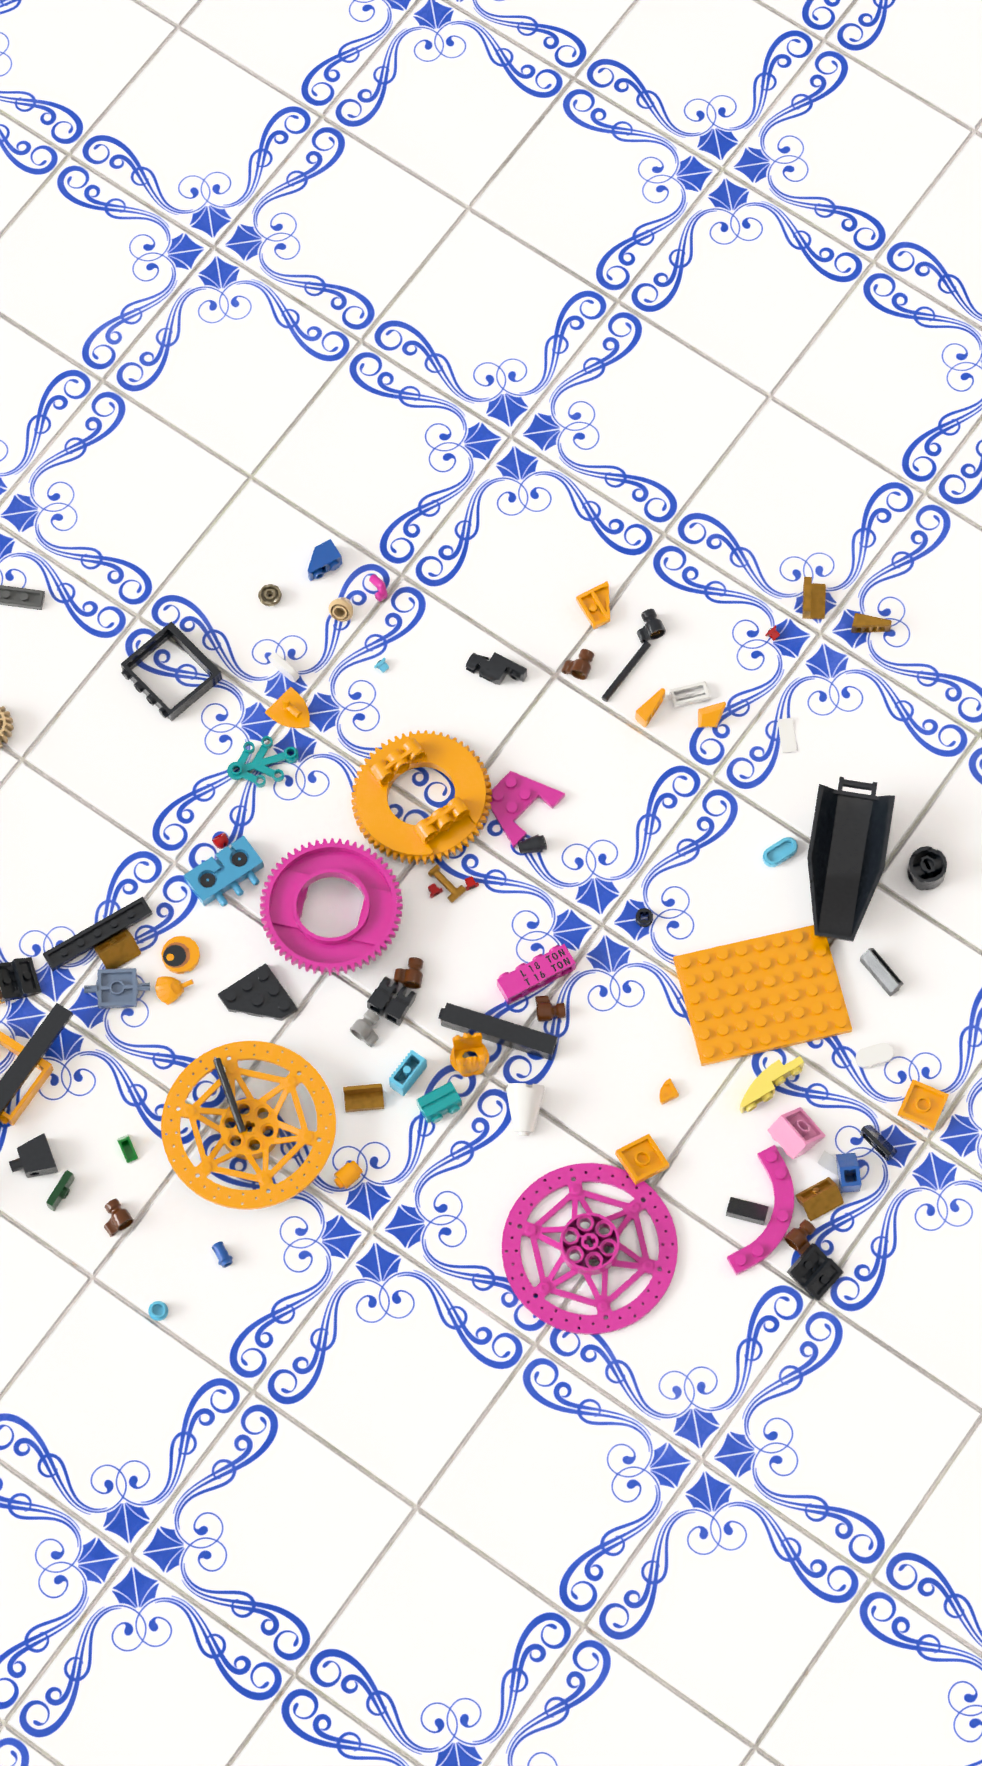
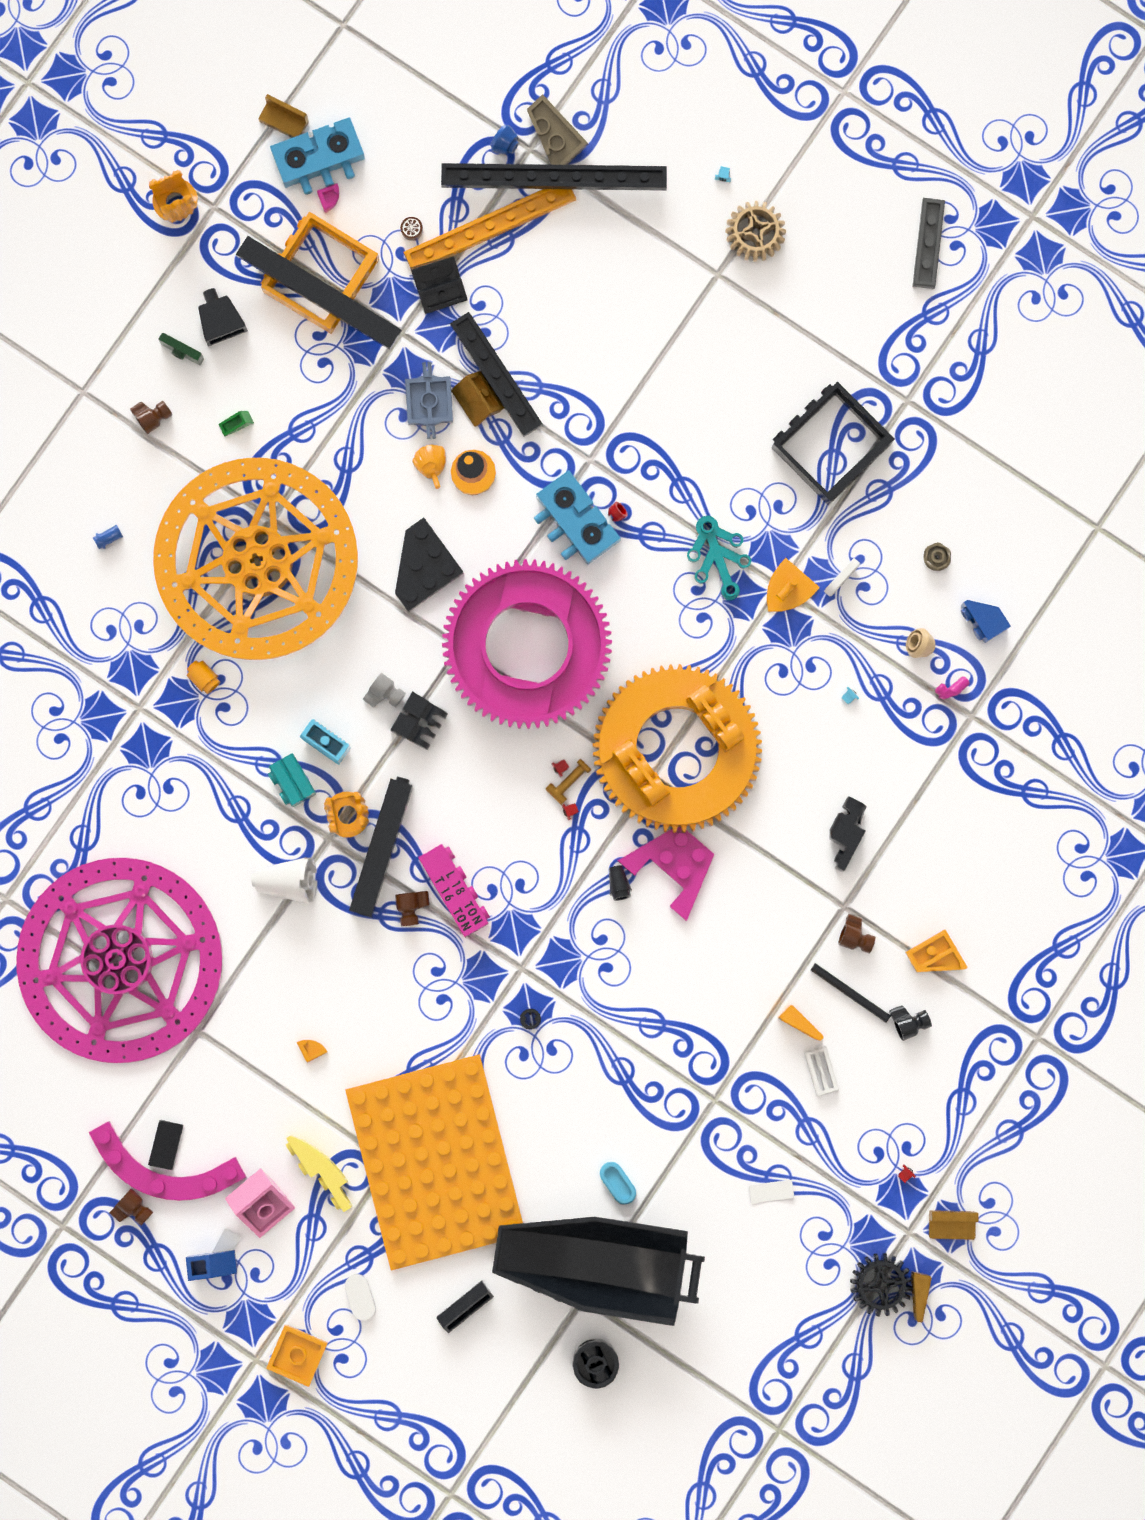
camera: 80 degrees right, 15 degrees up
(158, 1310) = (41, 467): medium azure plate -> none
(229, 1095) = (289, 534): black bar -> none
(363, 1097) = (297, 692): pearl gold panel -> none
(410, 977) = (449, 744): reddish brown piece -> none
(642, 1159) = (224, 1020): light orange plate -> none
(710, 715) = (791, 1097): light orange piece -> none
(815, 1272) = (91, 1225): black slope -> none
(820, 1198) = (181, 1230): pearl gold panel -> none
(848, 657) = (892, 1282): none -> black gear
(878, 1142) = (252, 1302): black slope -> none

